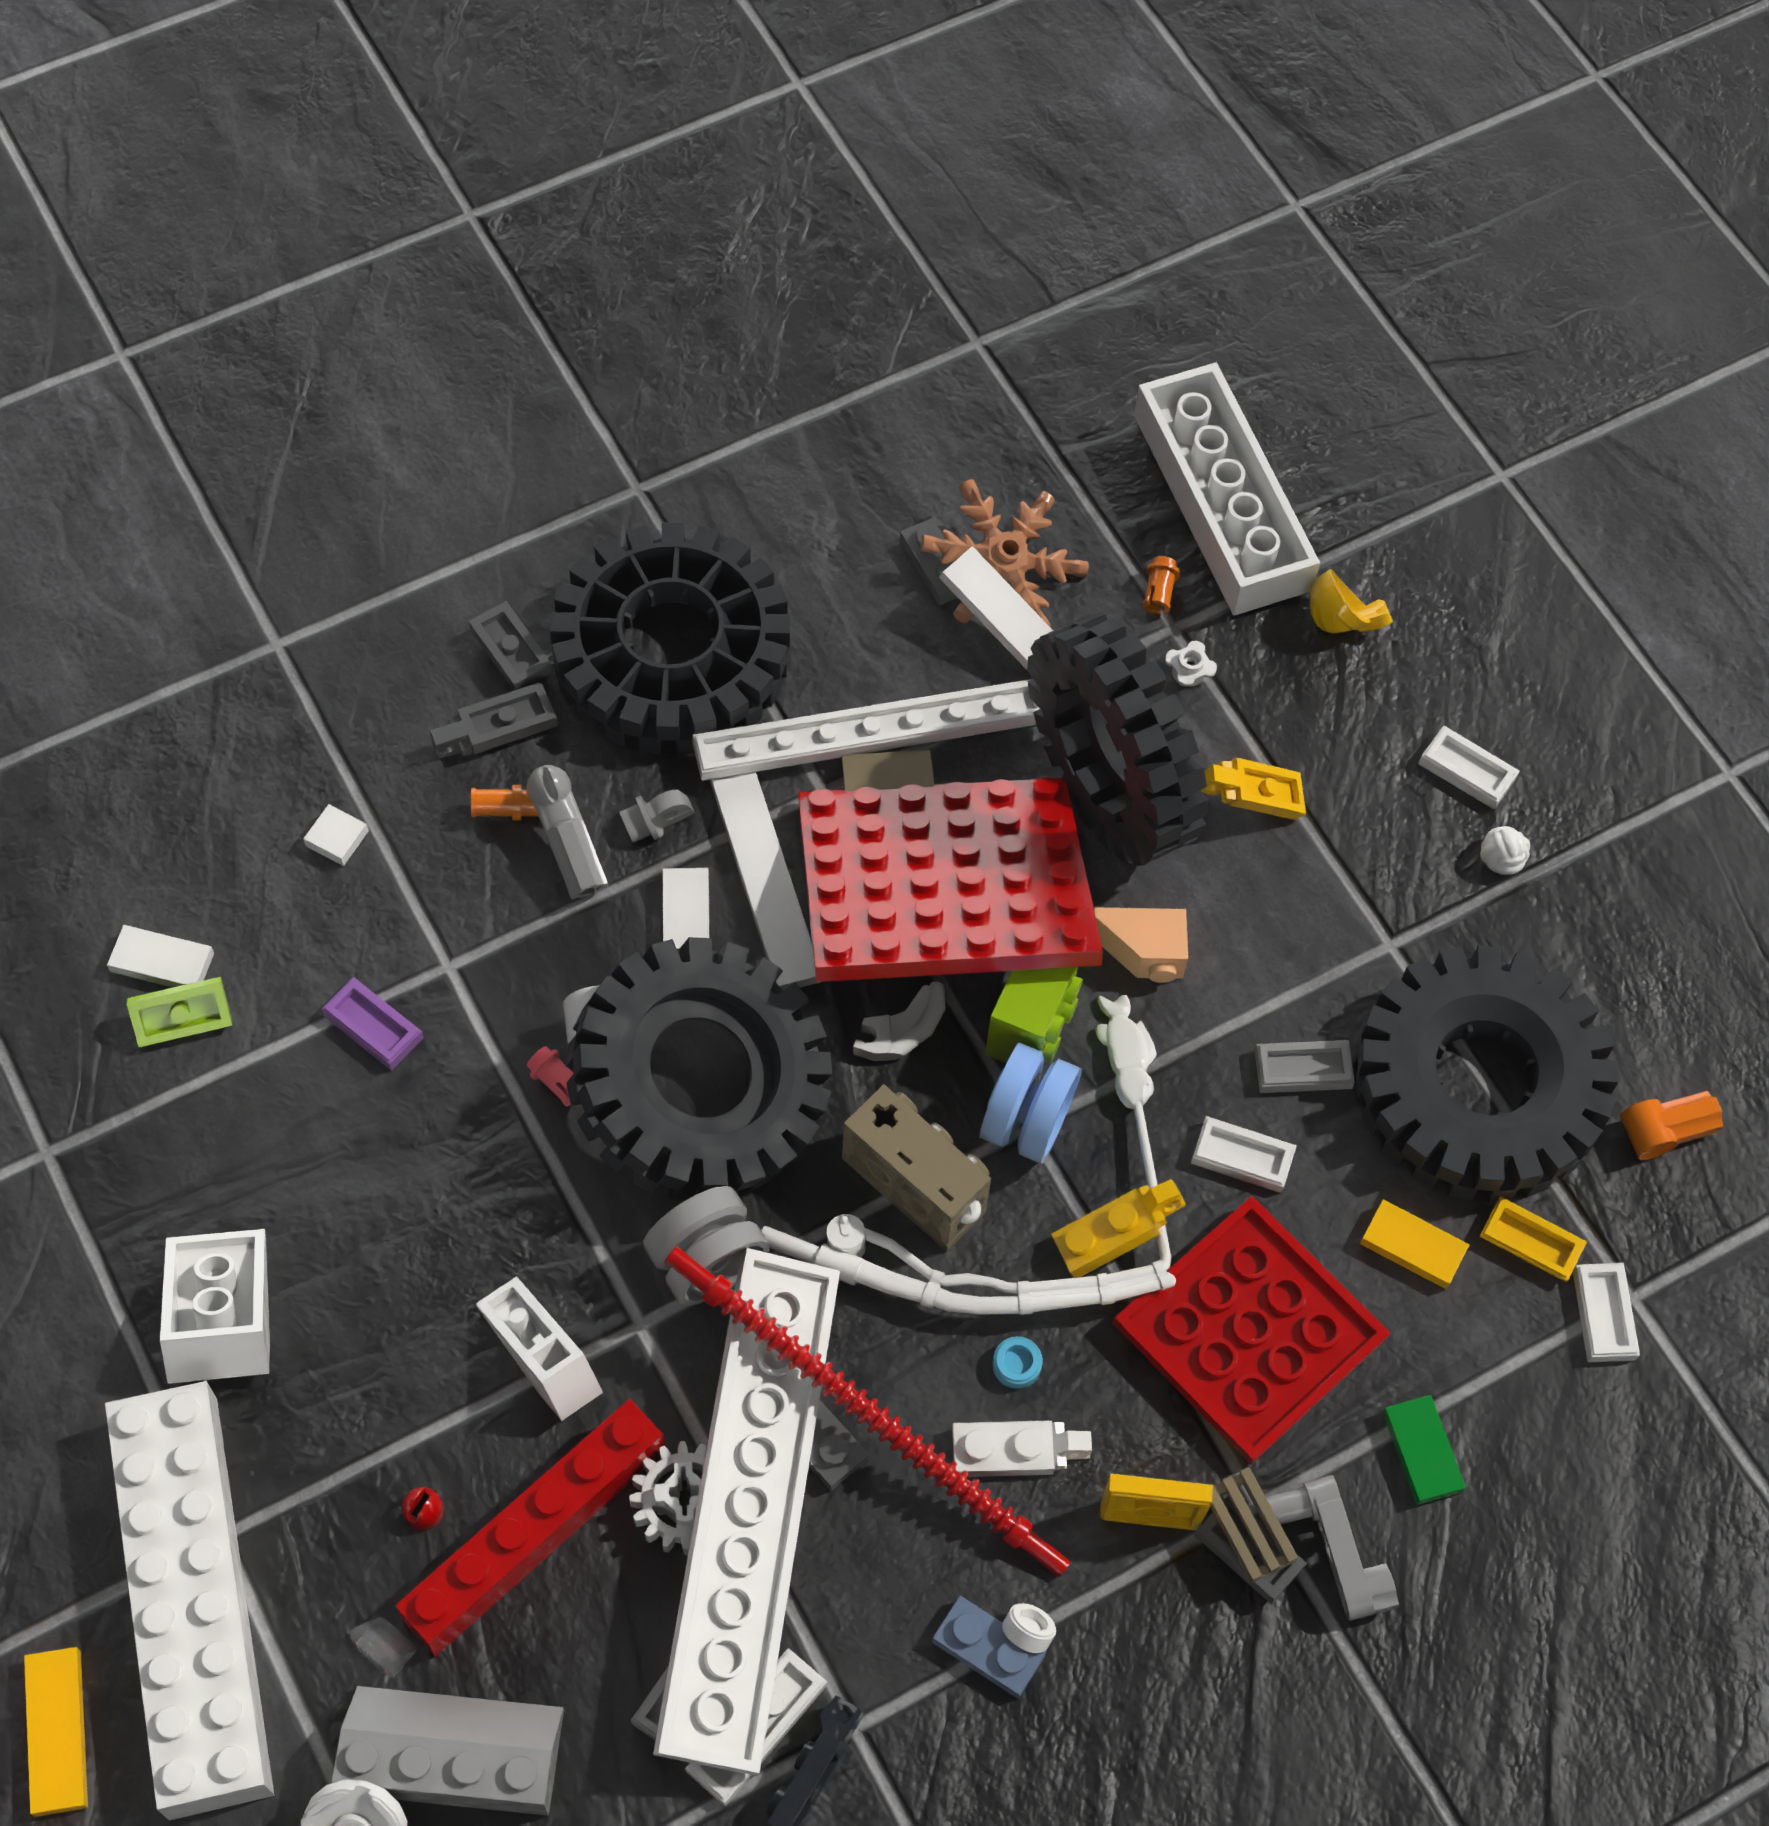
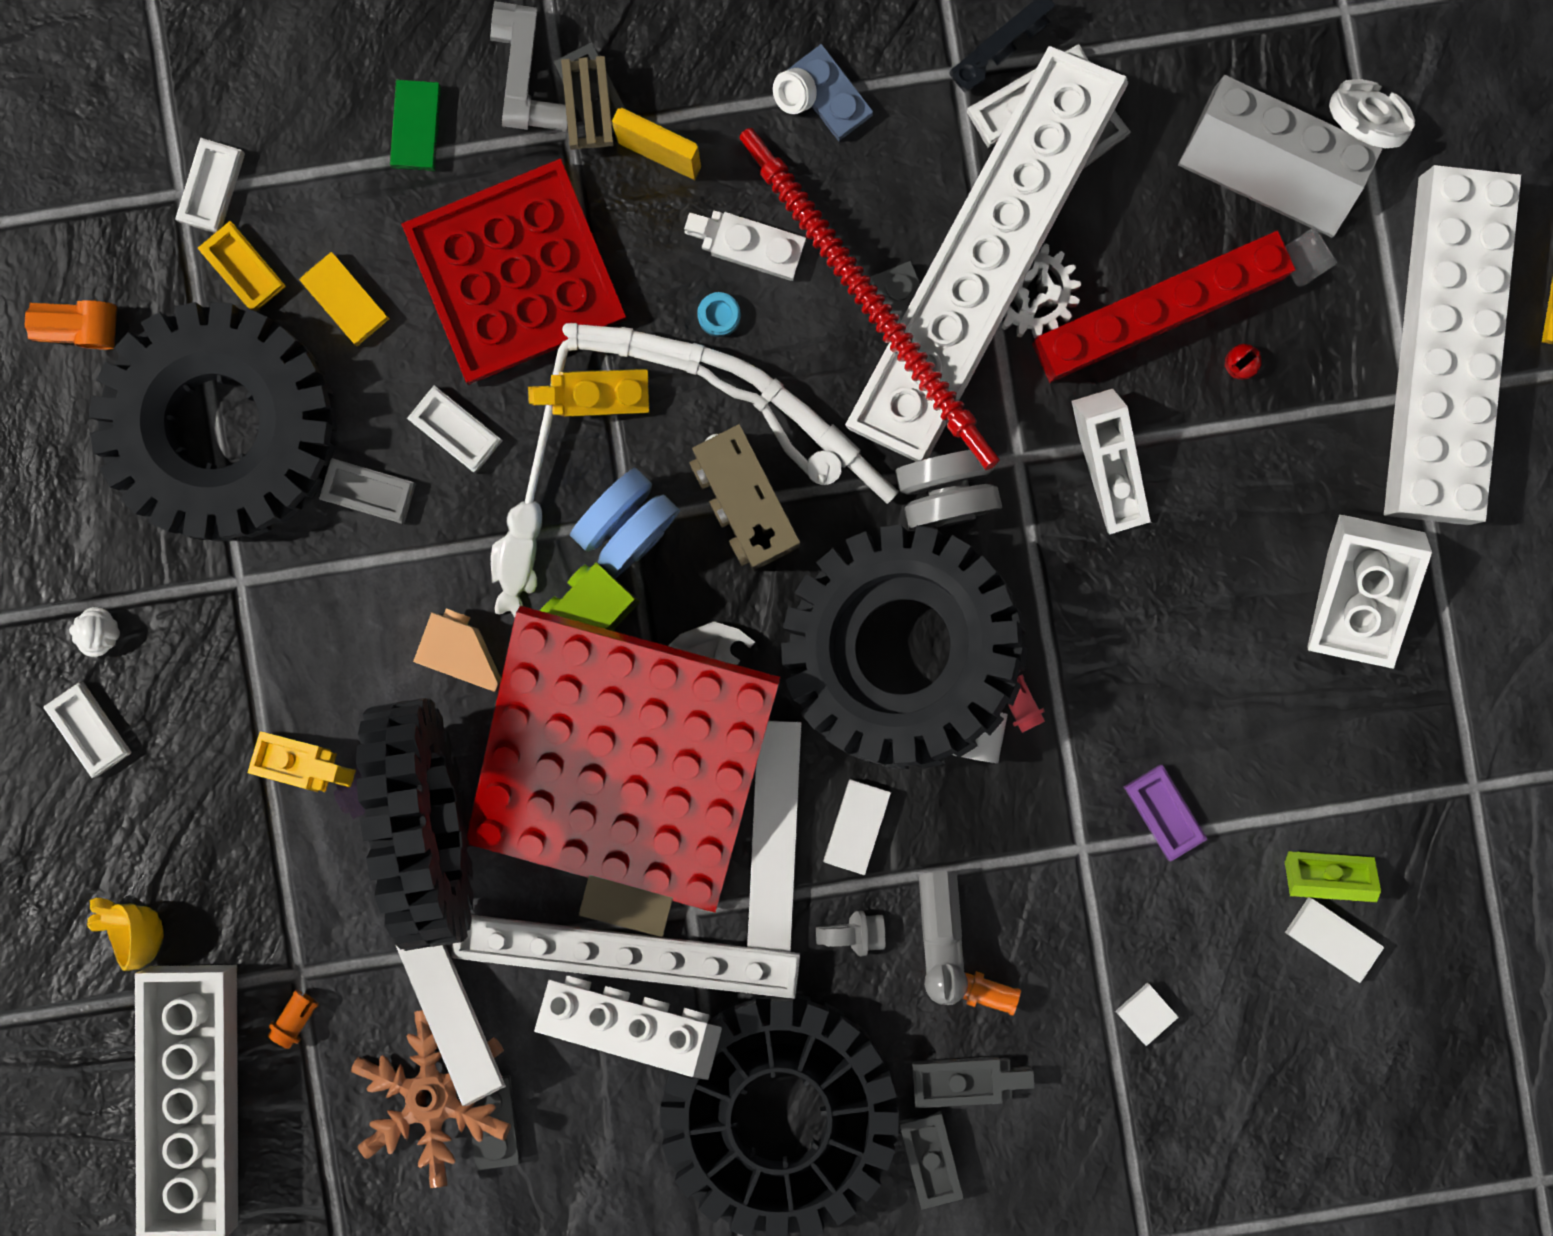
camera: 155 degrees left, 25 degrees up
(842, 655) = (629, 1029): none -> white brick
(1188, 674) = (308, 915): white plate -> none

